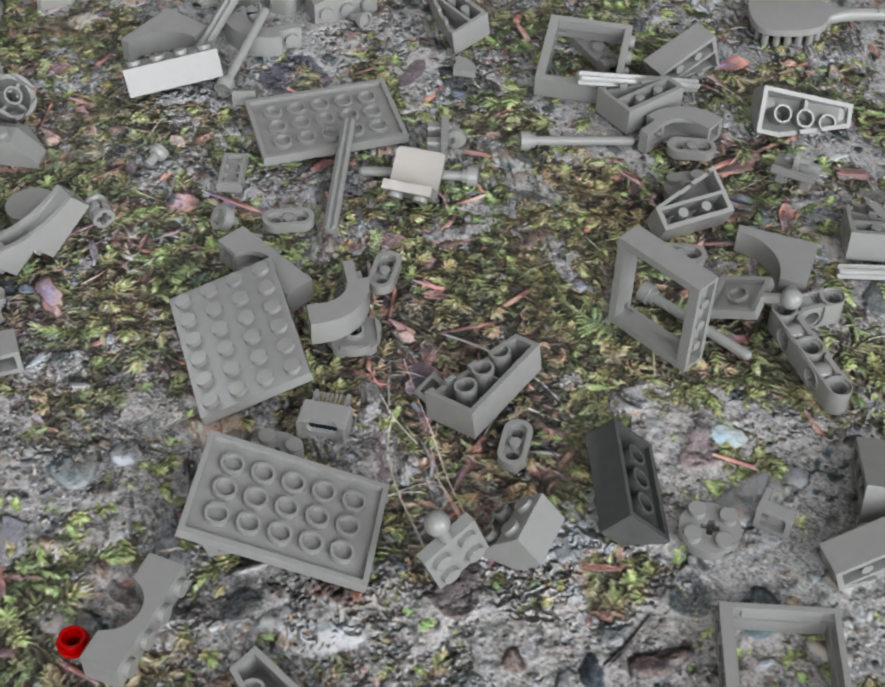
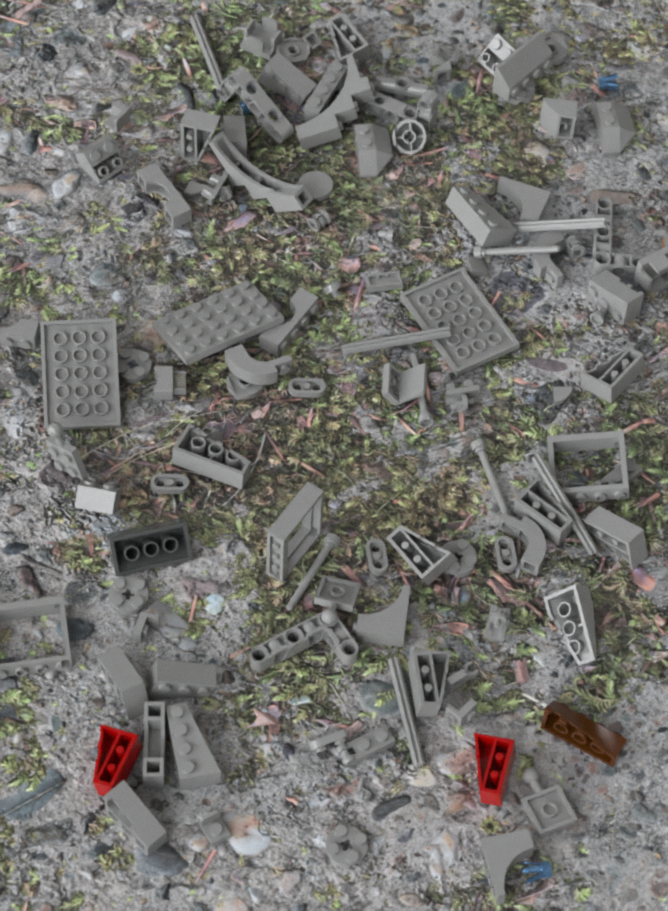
camera: 75 degrees right, 10 degrees up
(288, 220) = (344, 325): light grey plate -> none

